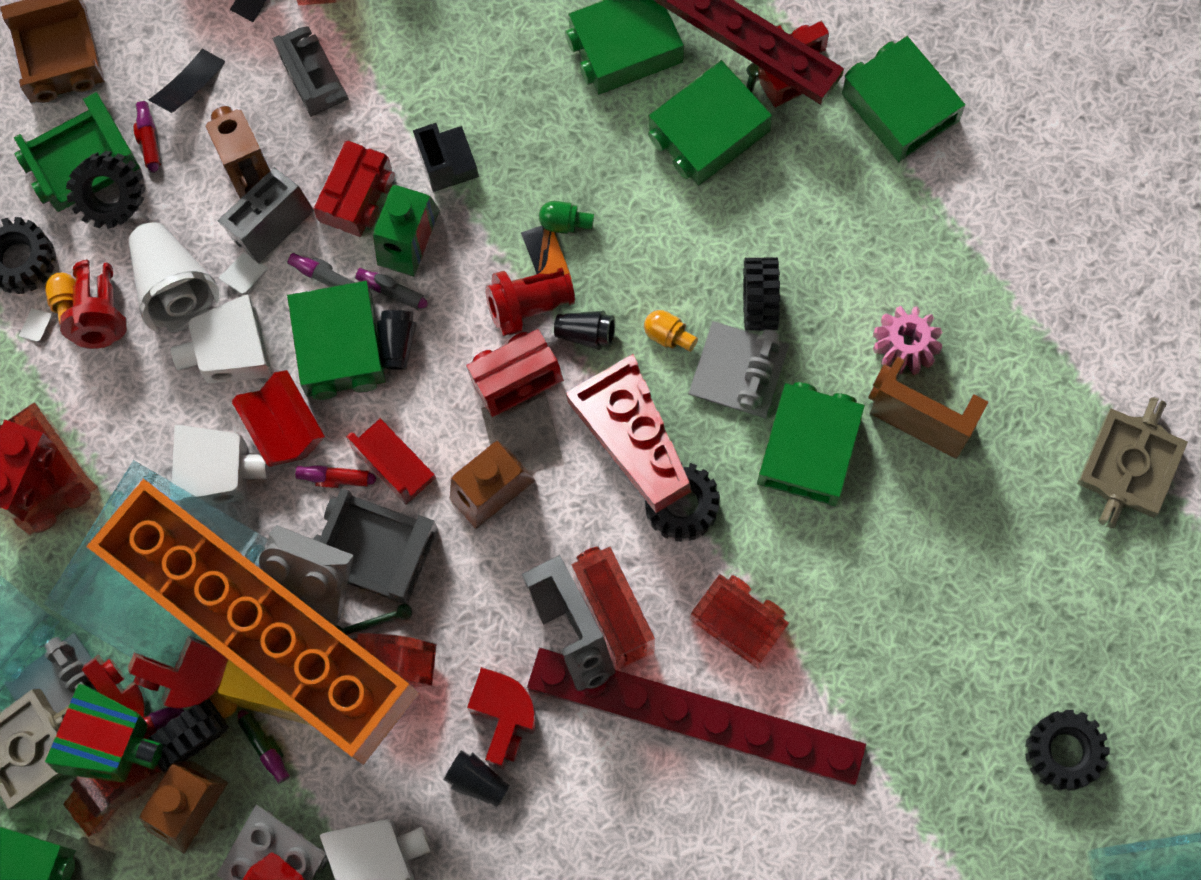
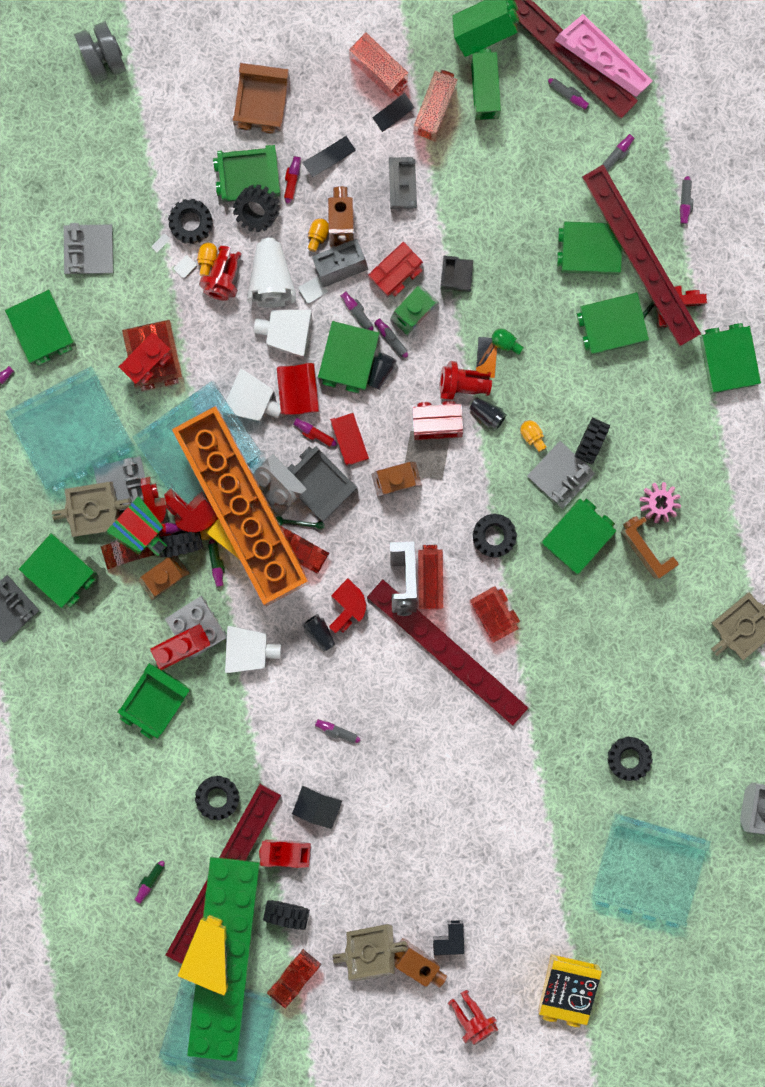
camera: 15 degrees right, 15 degrees up
(215, 192) = (317, 233): none -> light orange cylinder
(629, 427) = (484, 479): wing -> none

